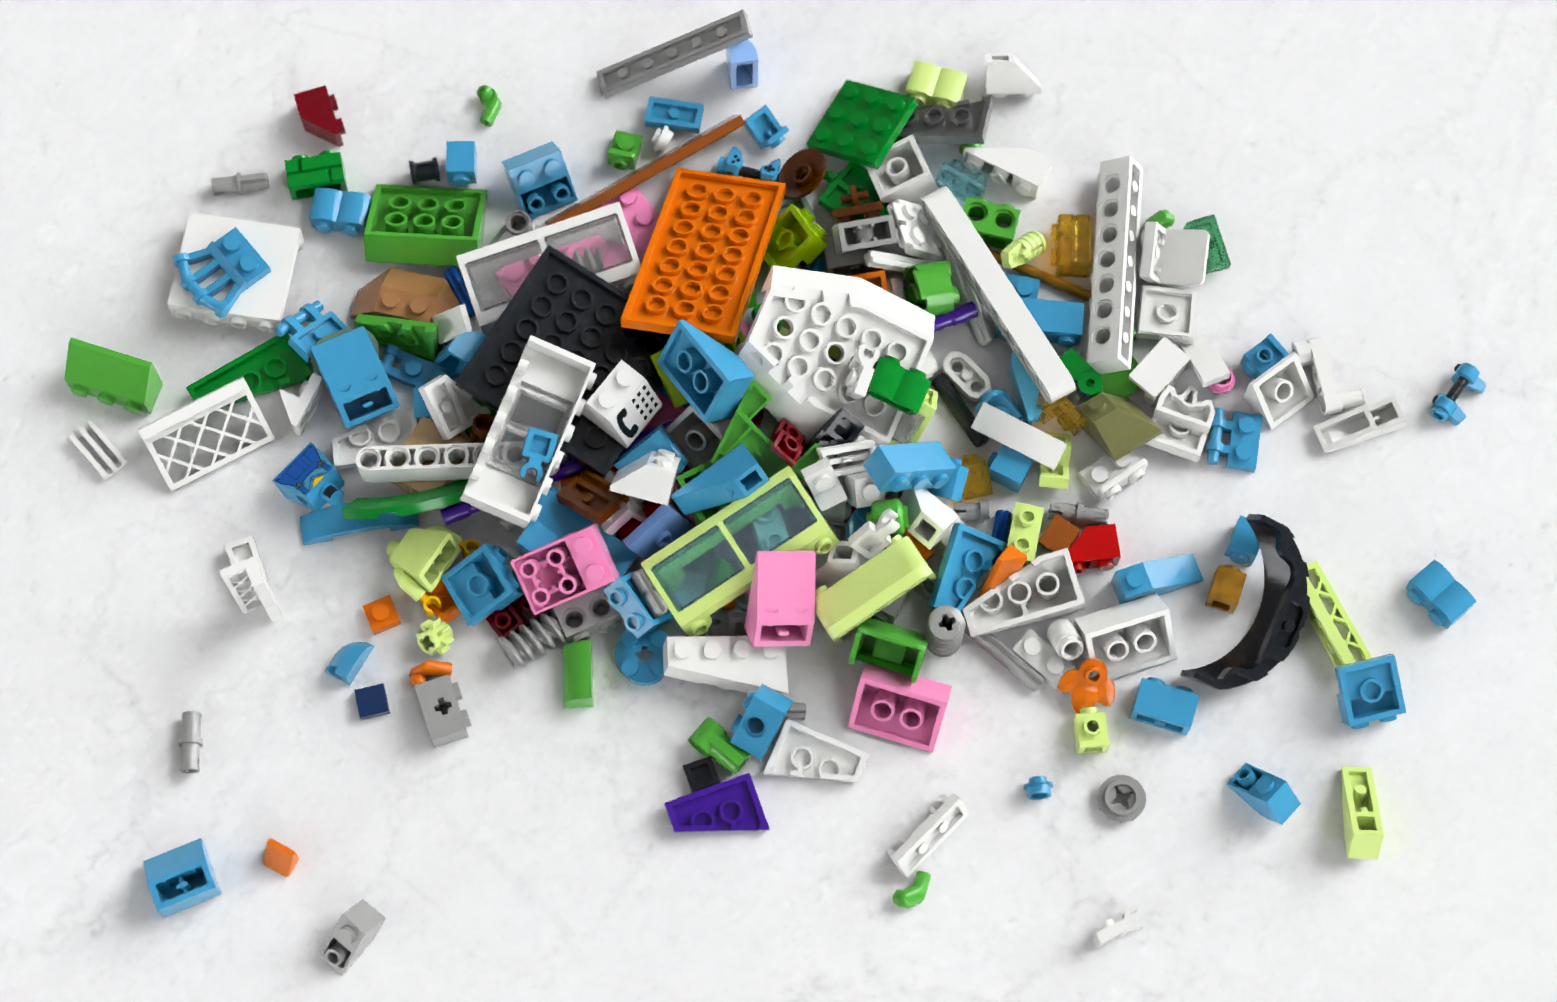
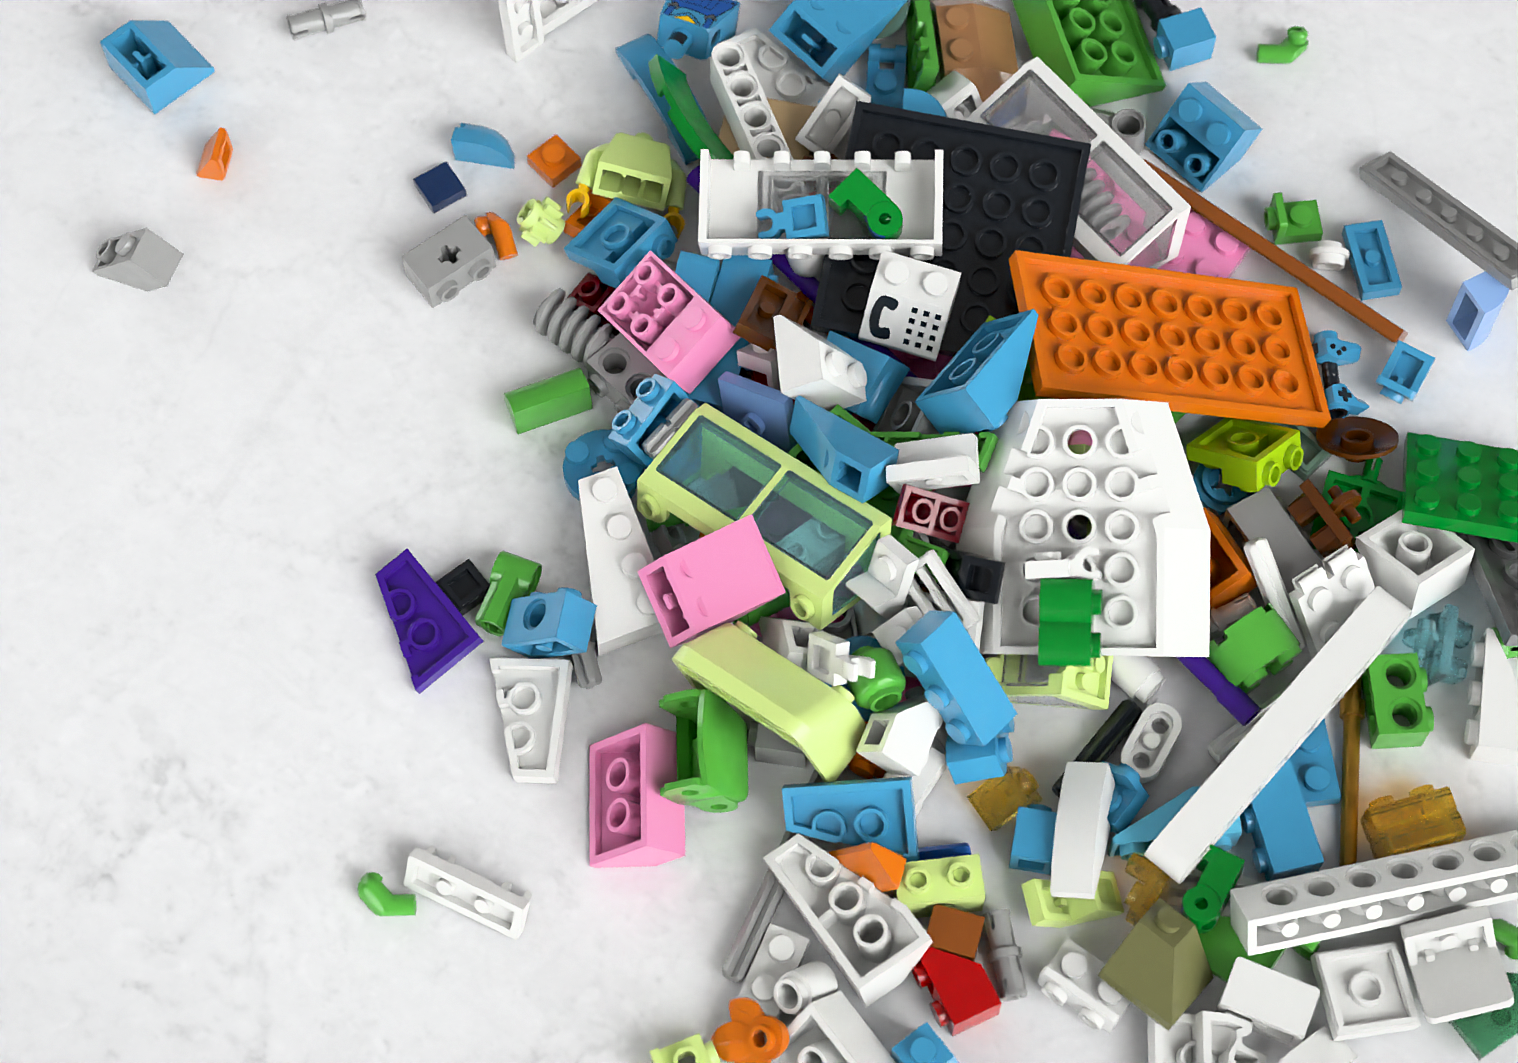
camera: 75 degrees right, 5 degrees down
(554, 396) = (868, 205): none -> green leg
(757, 423) = (936, 463): none -> white panel
(864, 234) = (1288, 527): light grey brick -> none
(945, 631) = (757, 818): light grey piece -> none
(973, 511) = (953, 810): light grey pin -> none
(1023, 250) = (1371, 755): yellowish green hinge -> none
(1038, 788) = (581, 1019): dark azure plate -> none

